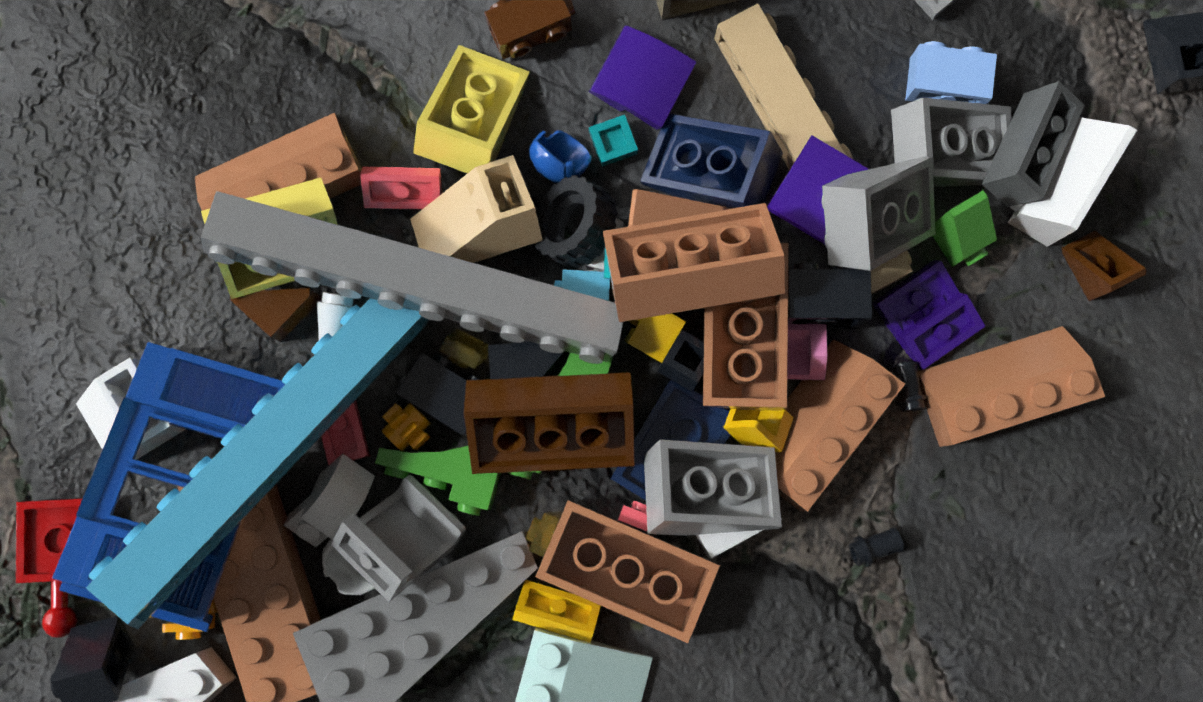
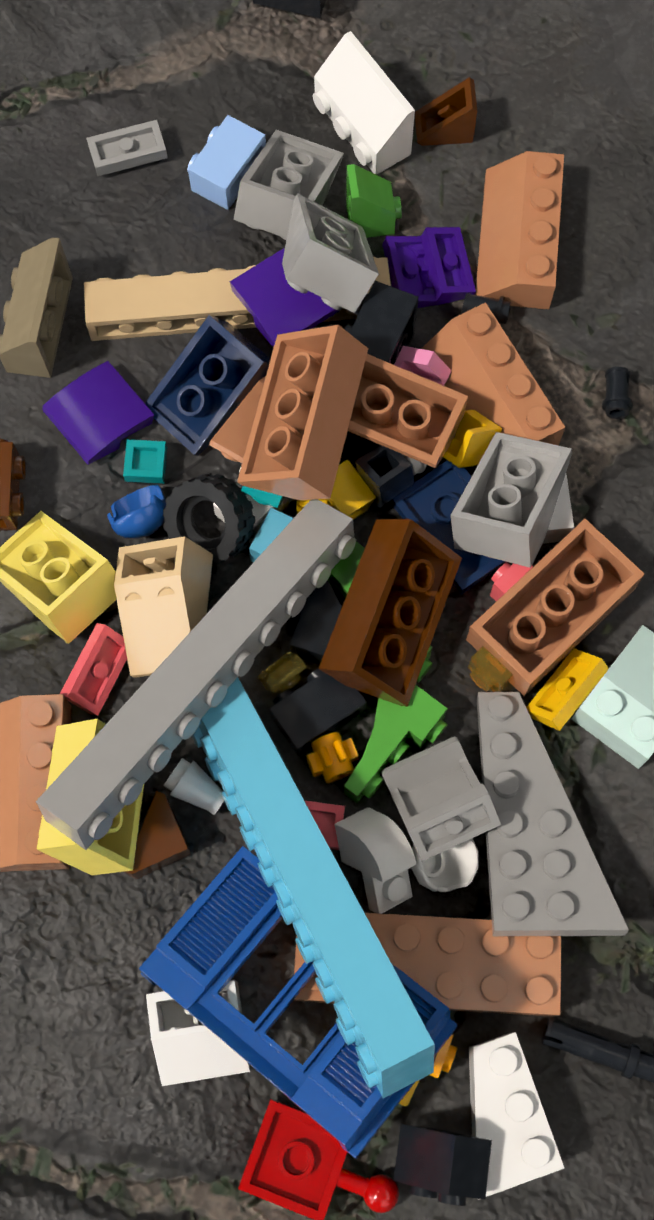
camera: 65 degrees left, 10 degrees down
(1033, 144) = (321, 119): dark grey brick -> none

